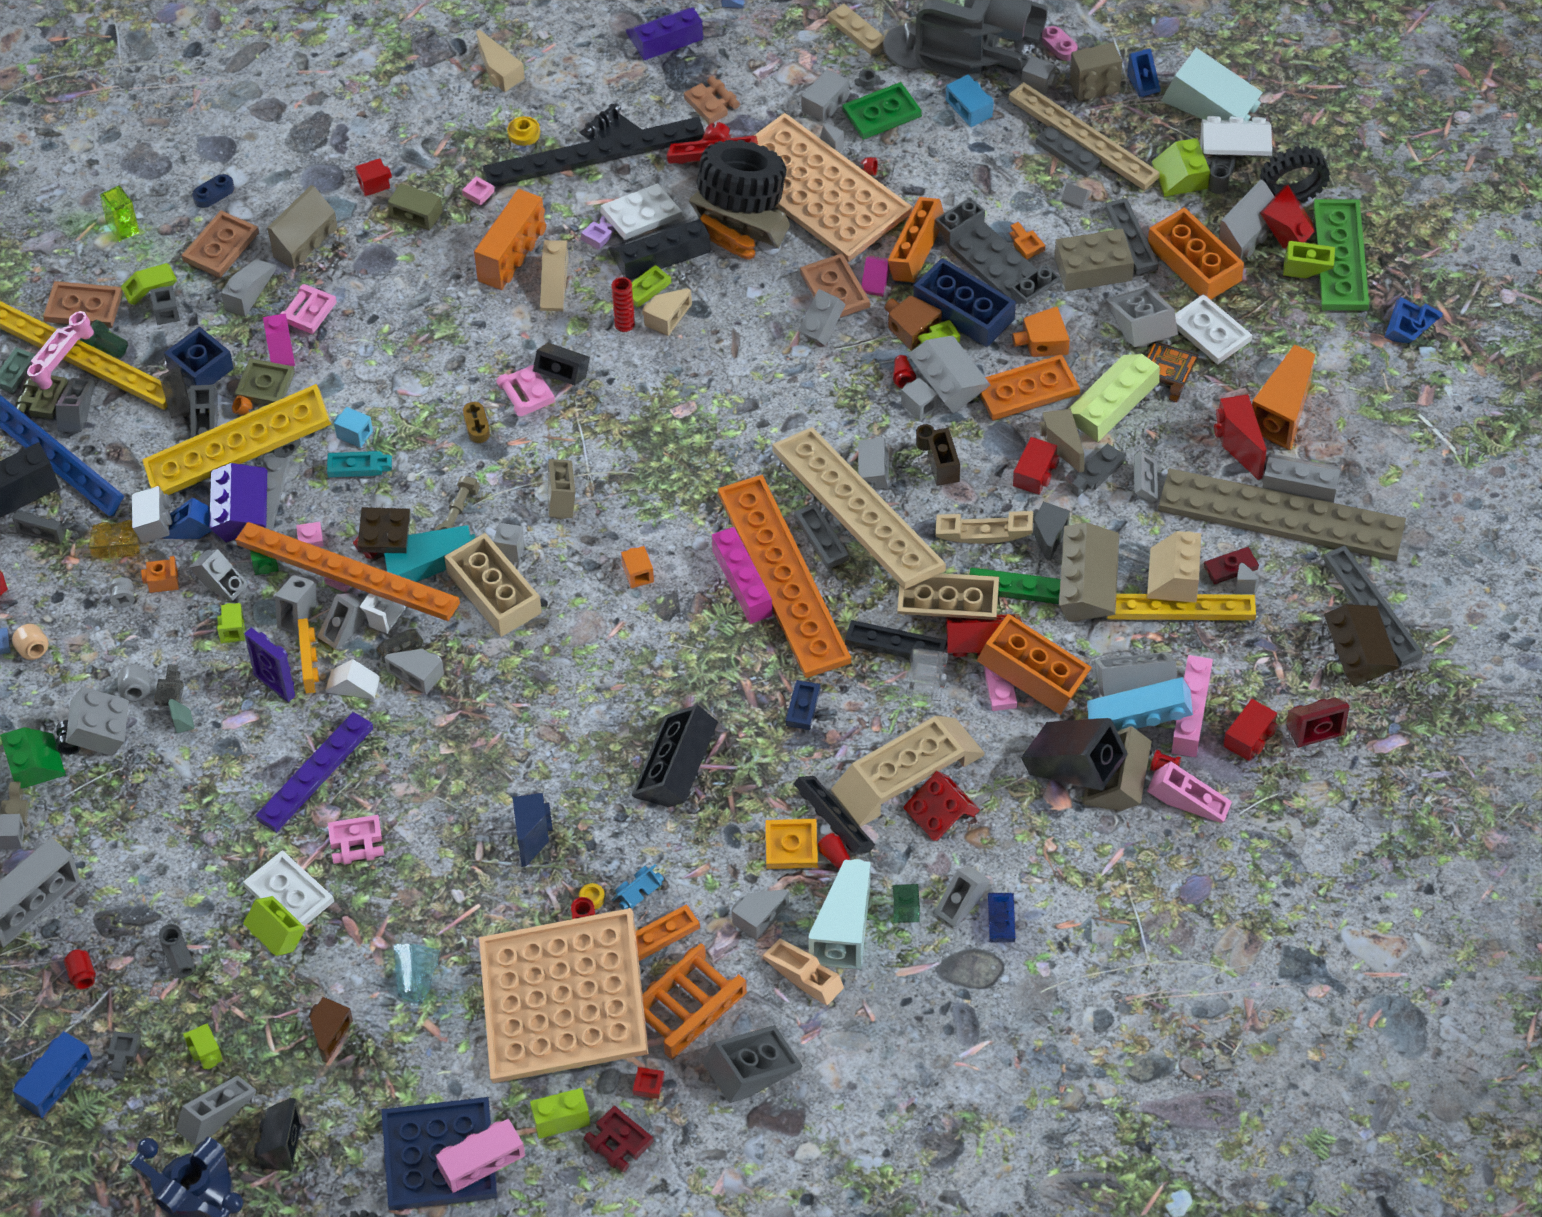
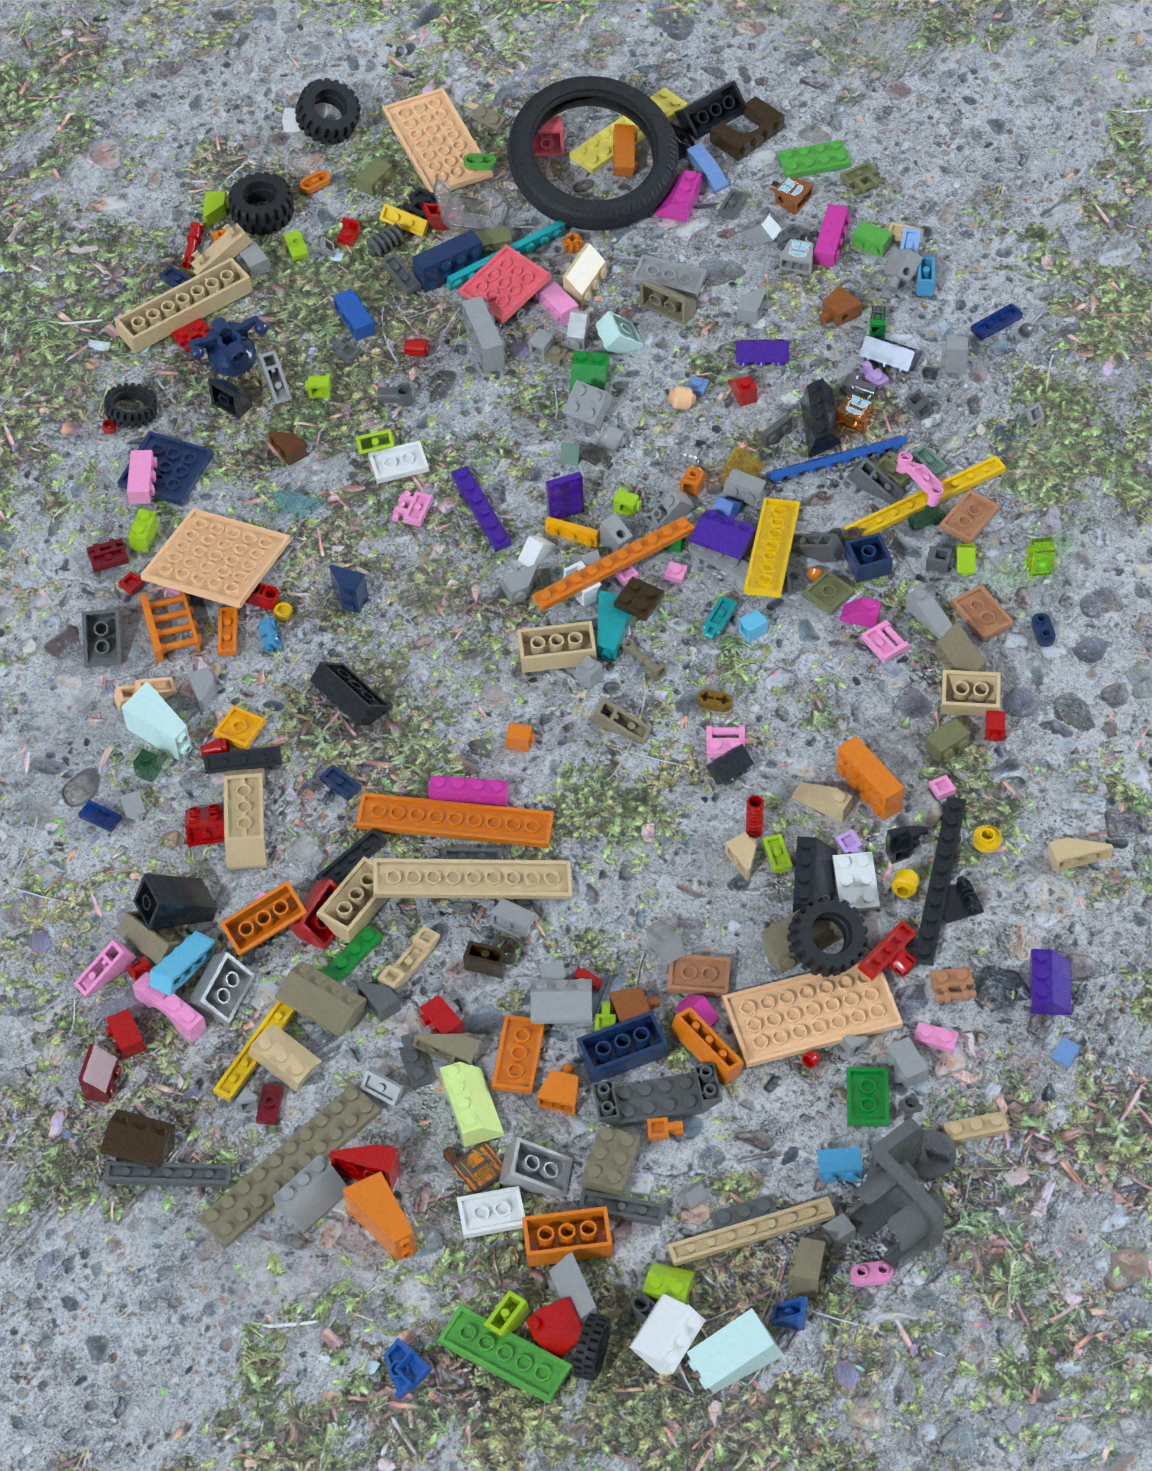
camera: 120 degrees right, 0 degrees up
(350, 200) = (970, 692): none -> tan slope
(582, 190) = (903, 841): none -> black slope
(618, 172) = (905, 883): none -> yellow head
(779, 91) = (935, 1037): none -> bright pink plate

